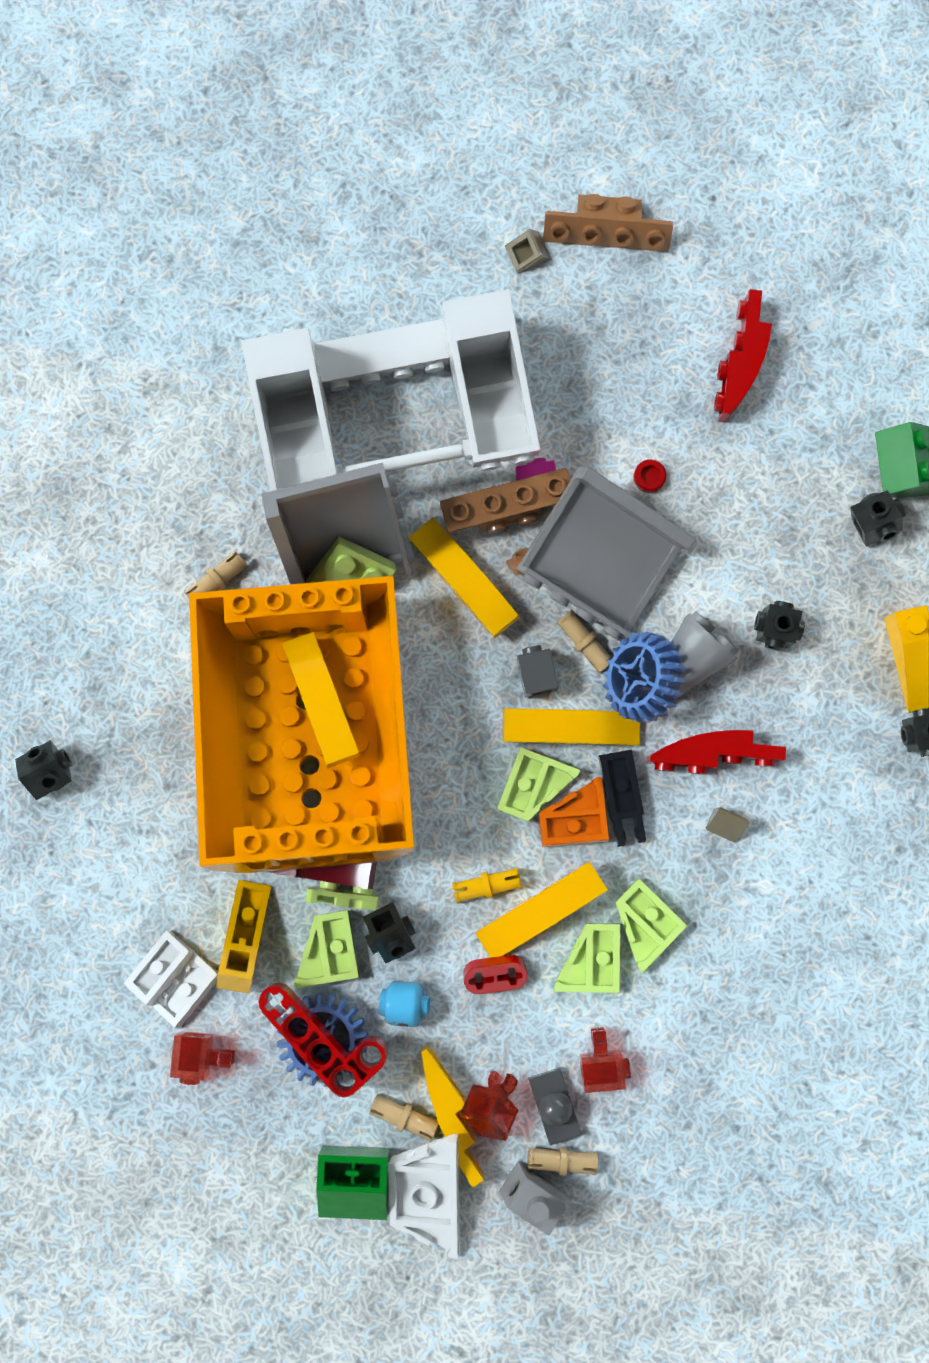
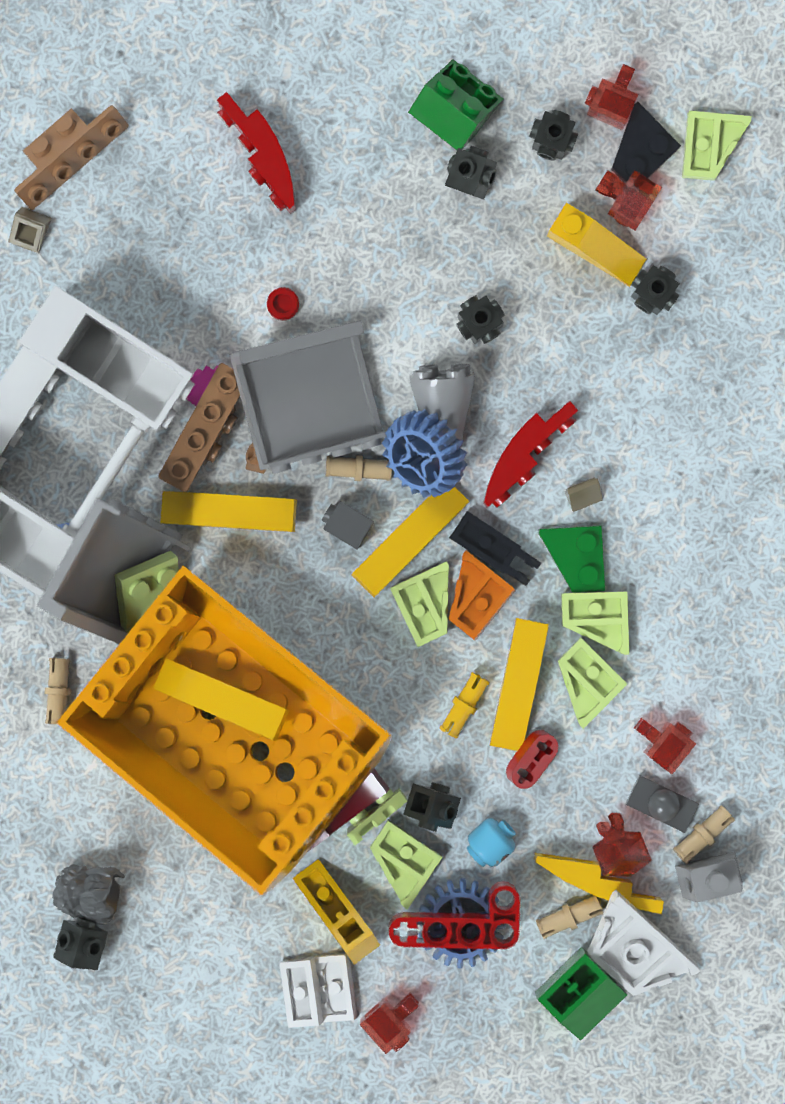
camera: 50 degrees left, 5 degrees up
(87, 739) = (88, 892): none -> dark grey hair
(676, 863) = (577, 556): none -> green wing

